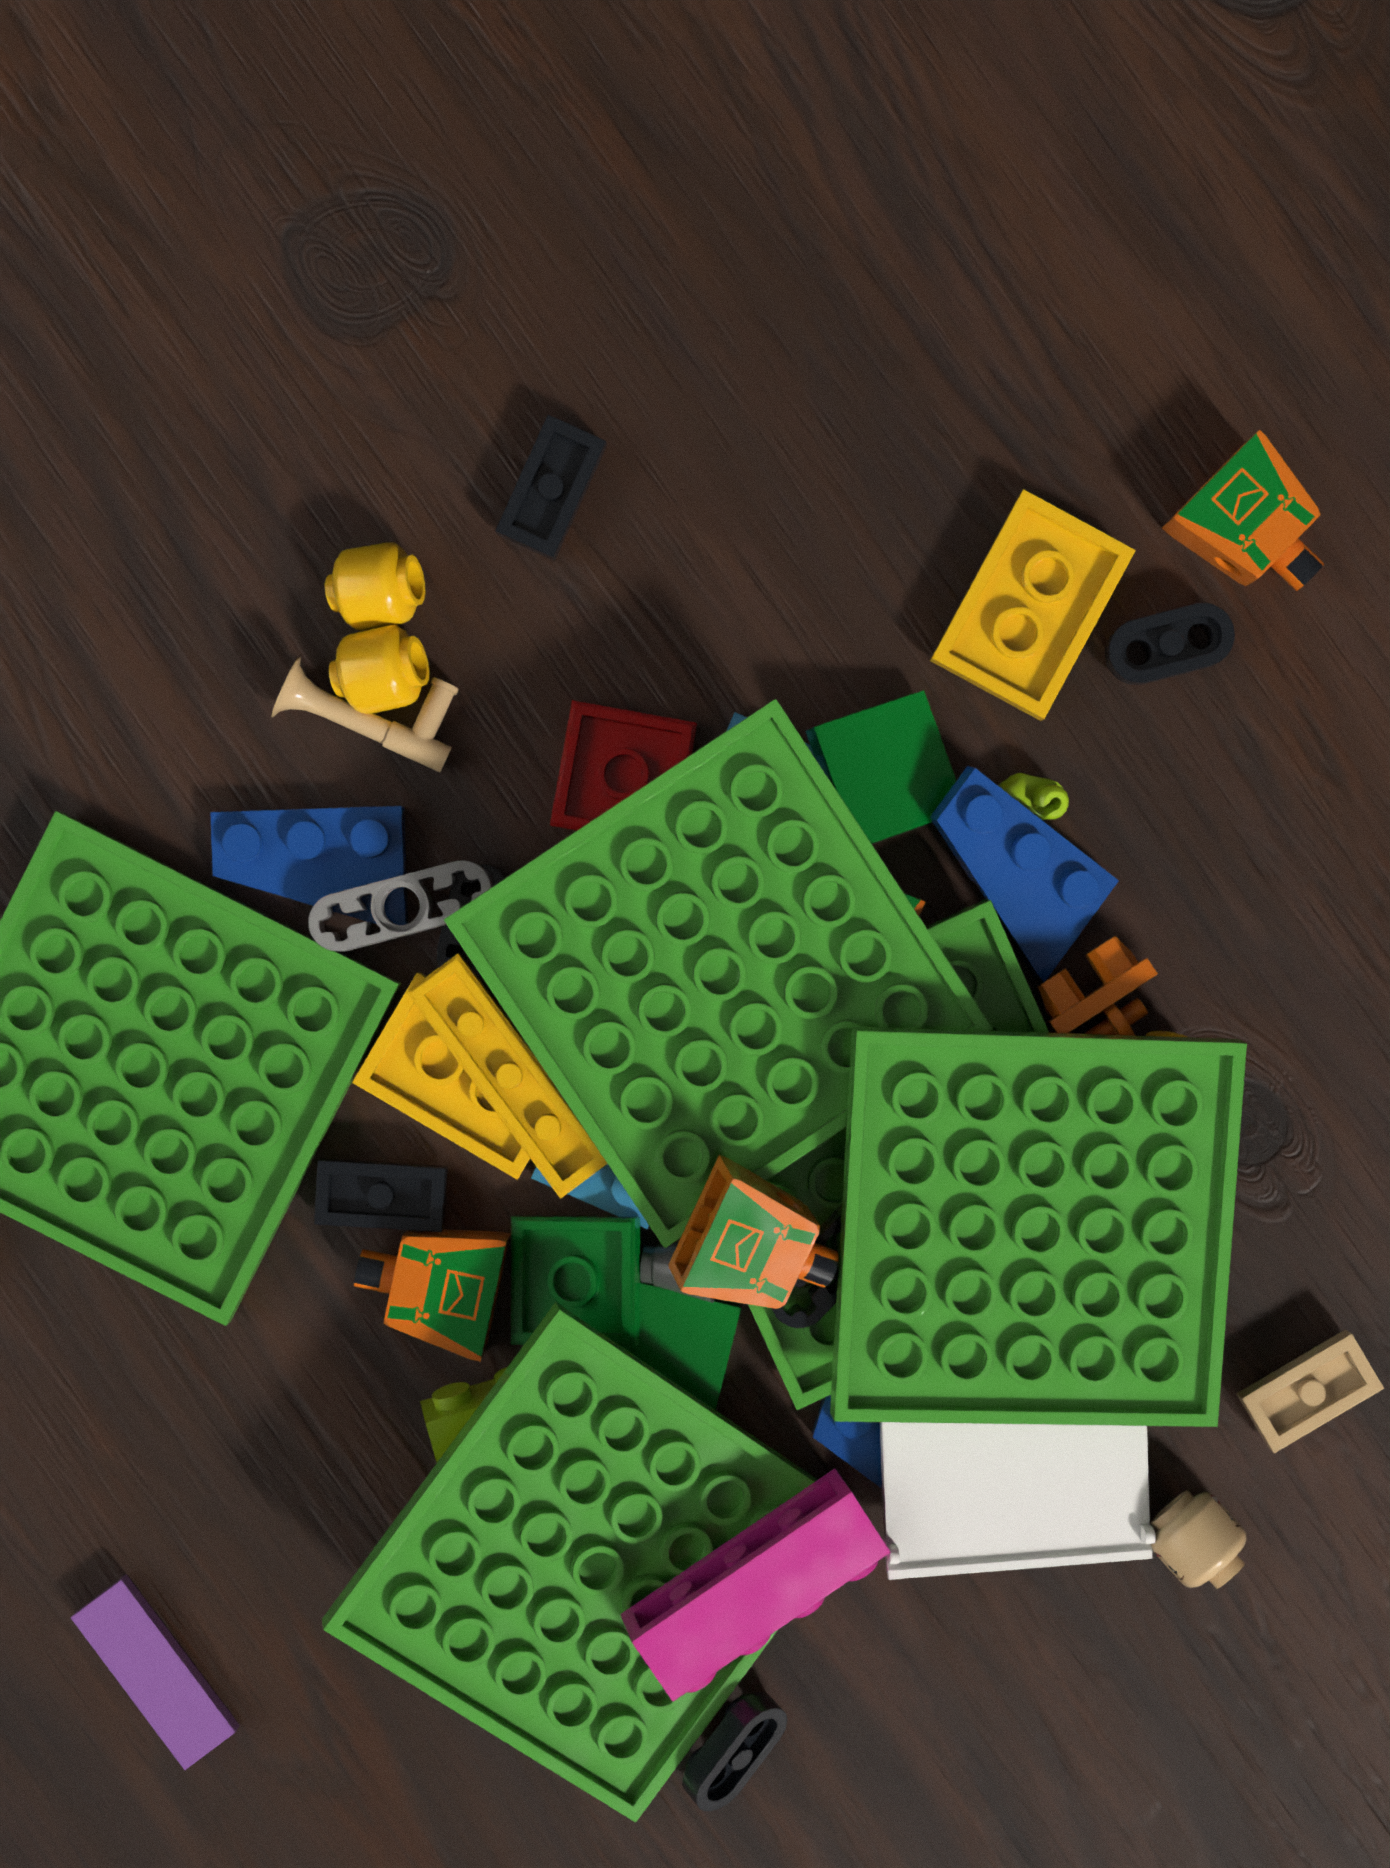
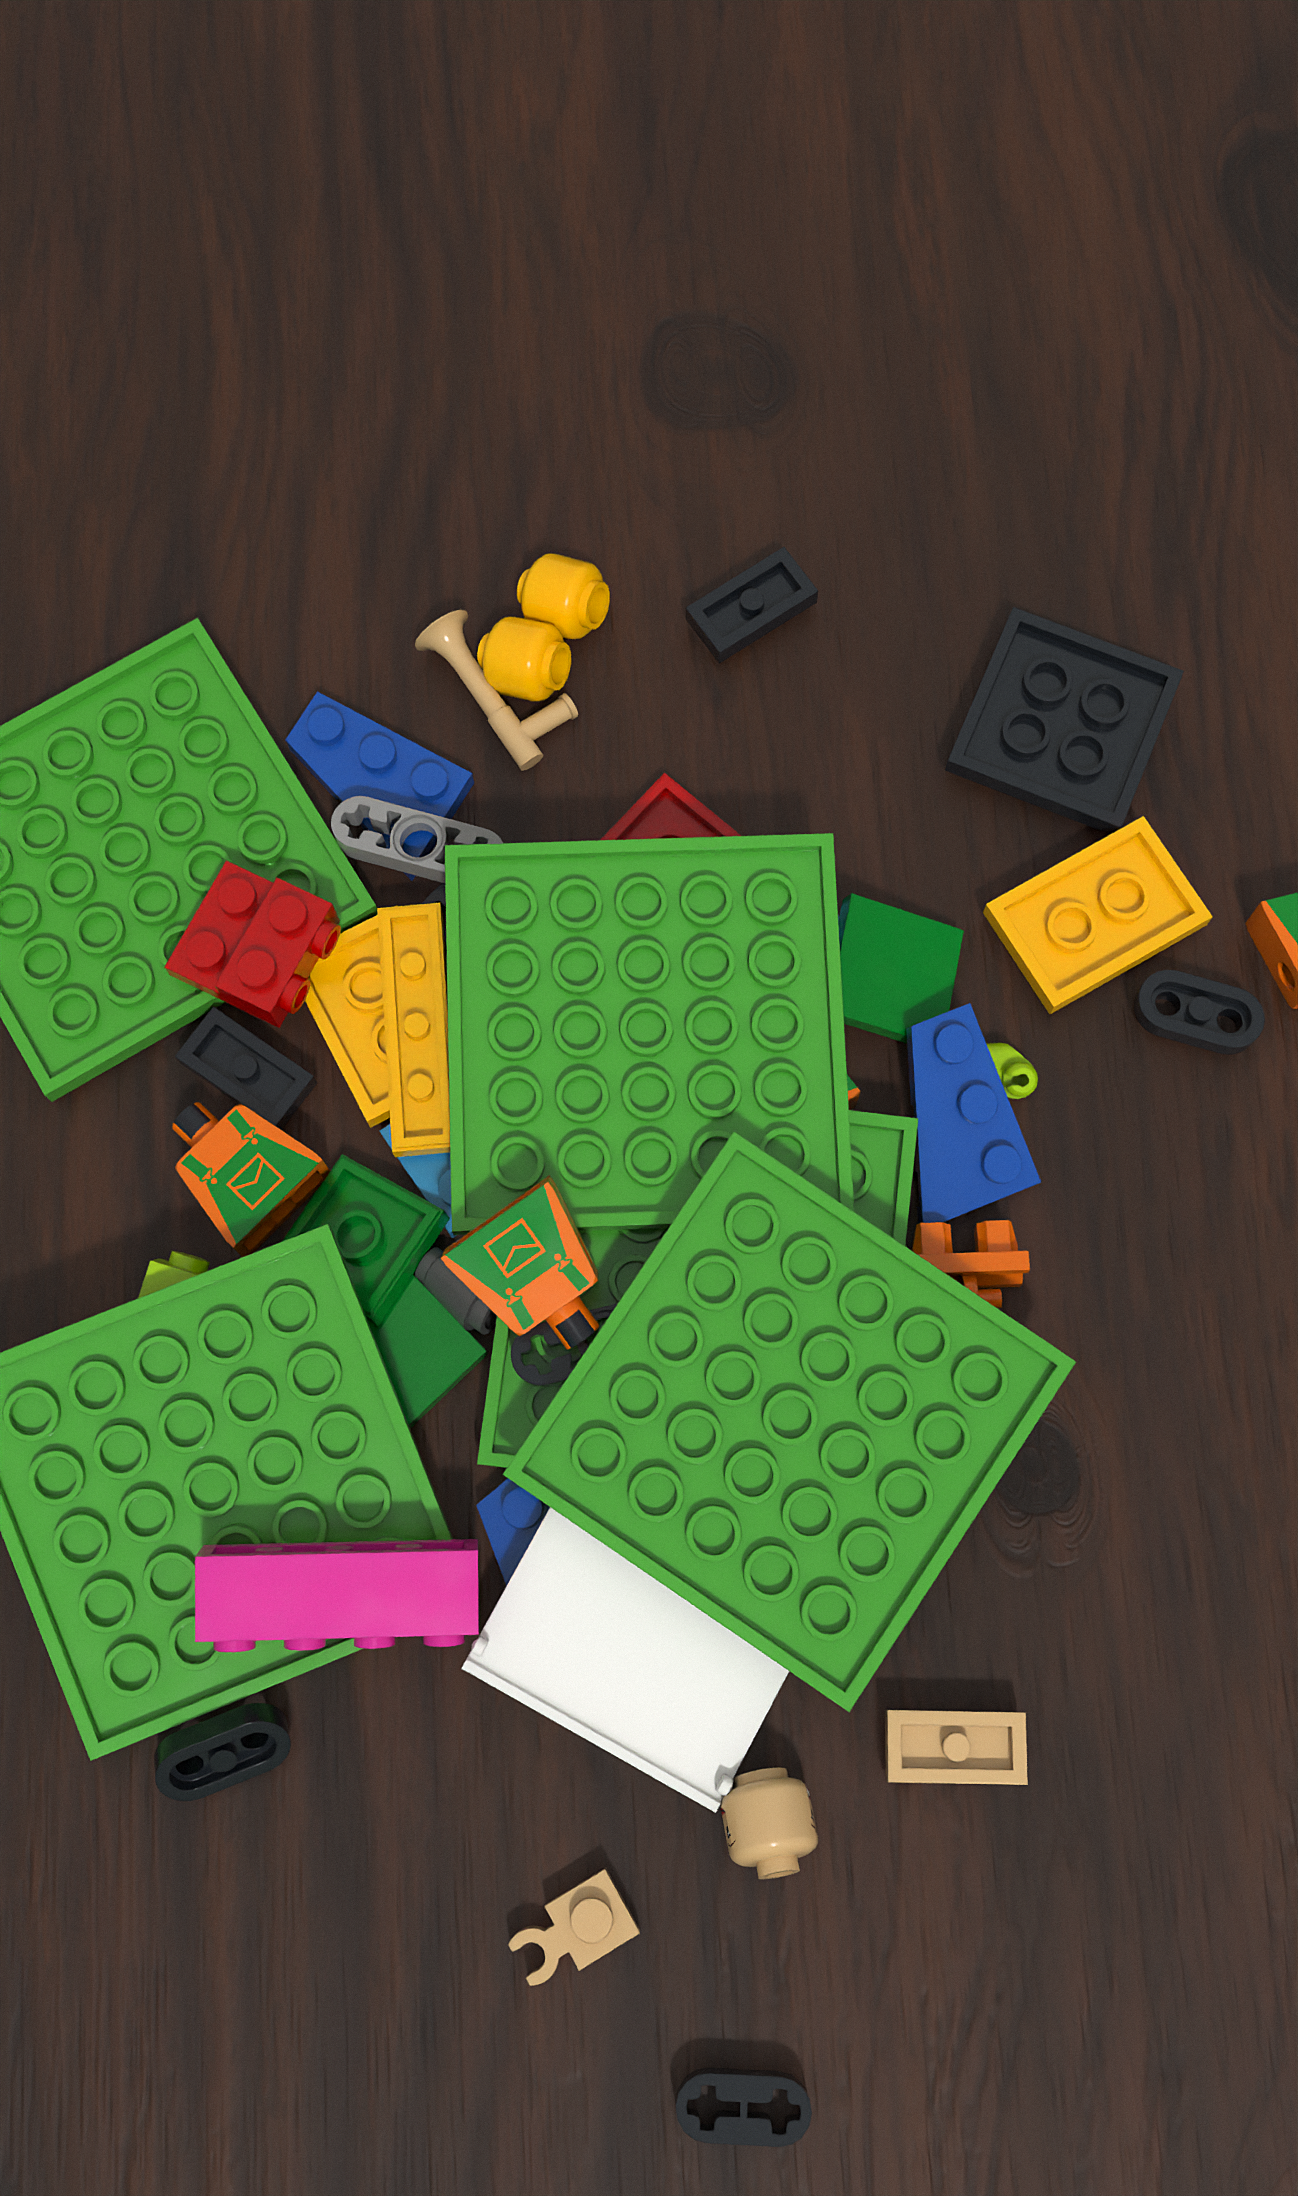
camera: 35 degrees right, 15 degrees down
(319, 1088) = (255, 943): none -> red plate
(900, 433) = (1064, 721): none -> black plate
(1098, 1697) = (587, 1924): none -> tan plate
(1300, 1757) = (743, 2126): none -> black beam

